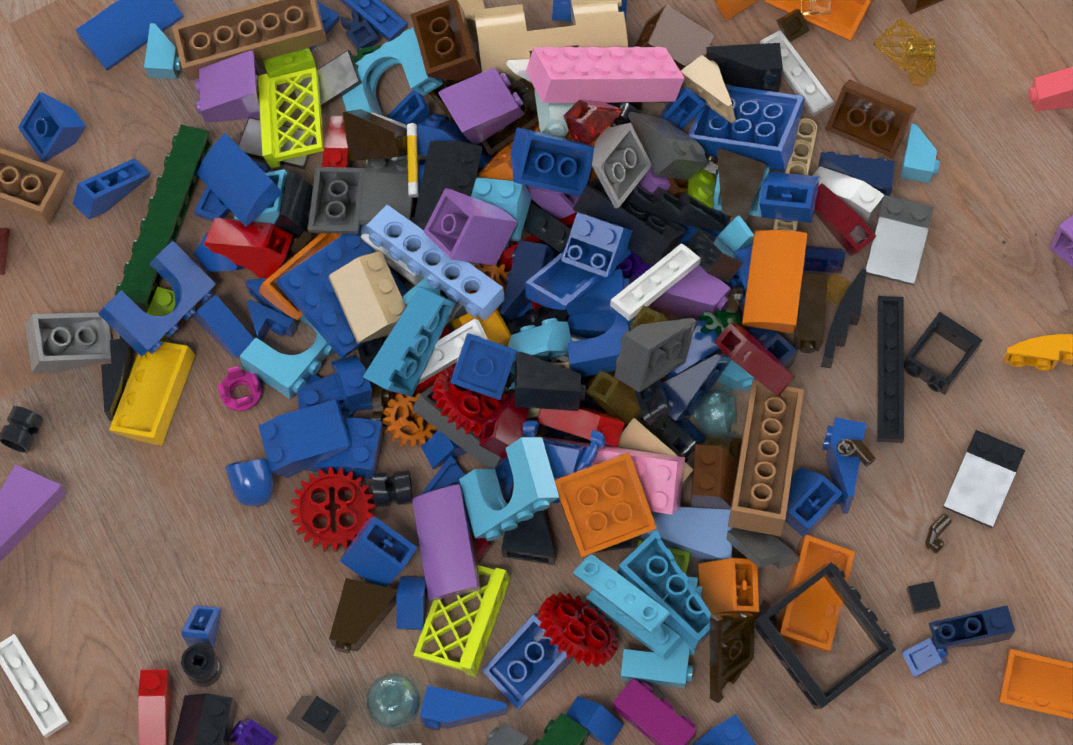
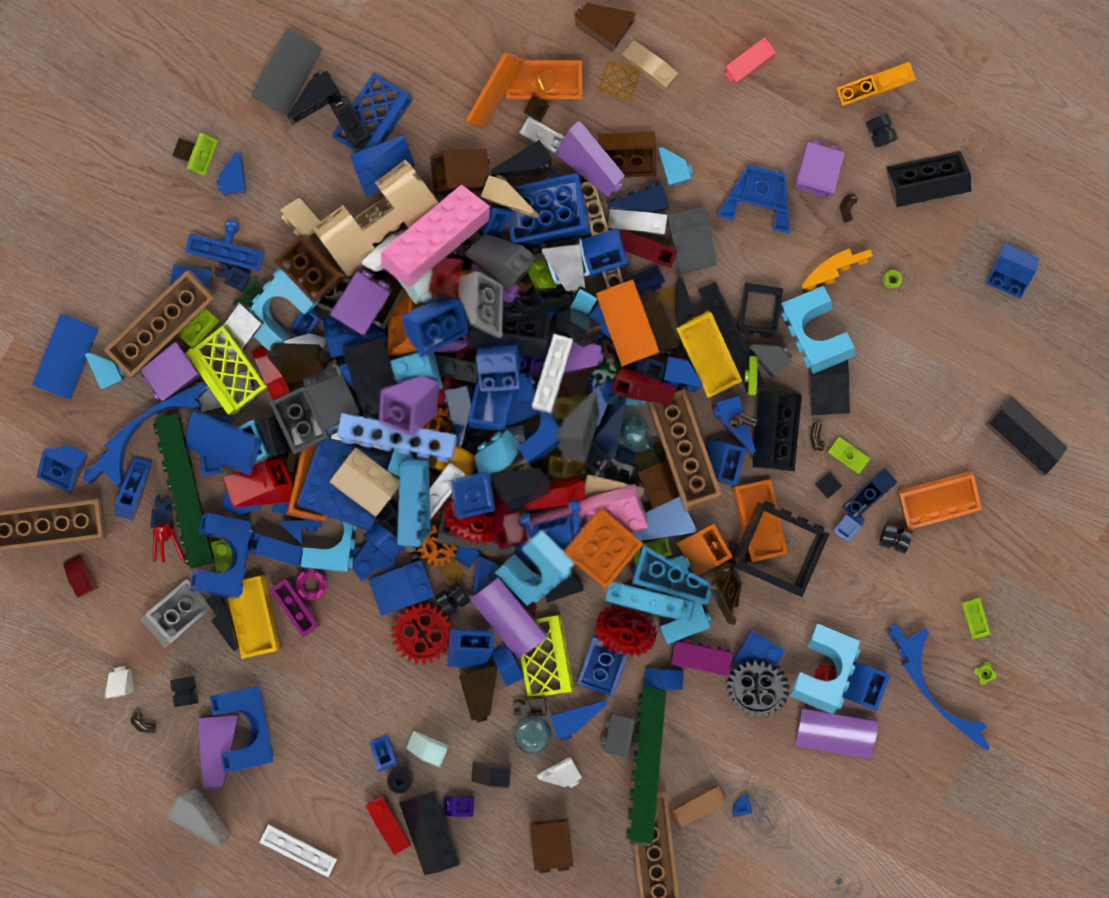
camera: 30 degrees left, 20 degrees up
(83, 479) = (257, 749): none -> blue arch
(109, 245) = (162, 533): none -> red plant
(110, 147) = (113, 461): none -> blue slope
(123, 232) = (161, 515): none -> dark blue plate
(204, 402) = (295, 607): none -> magenta brick
(251, 482) = (360, 646): blue piece -> none
(260, 647) = (427, 748): none -> light aqua slope
(304, 438) = (377, 597): blue slope -> none
(411, 460) = (452, 572): none -> clear yellow slope
(412, 160) = (336, 366): yellow bar -> none
(414, 666) = (532, 705): none -> dark brown plate
(762, 548) = (714, 515): dark grey slope -> none
(810, 373) = (681, 373): none -> blue slope
(826, 95) = (590, 160): none -> medium lavender slope
(853, 368) = (709, 354): none -> yellow slope
(891, 499) = (777, 430): none -> black slope
(892, 417) = (751, 376): none -> lime plate
(920, 56) = (639, 89): clear yellow piece -> none
(927, 409) = (771, 358): none -> dark grey slope
(950, 45) = (650, 65): none -> tan slope
(966, 575) = (848, 455): none -> lime plate
(978, 701) = (895, 537): none -> black wheel
(993, 427) = (817, 354): none -> medium azure arch
(1010, 228) = (761, 189): none -> blue wing

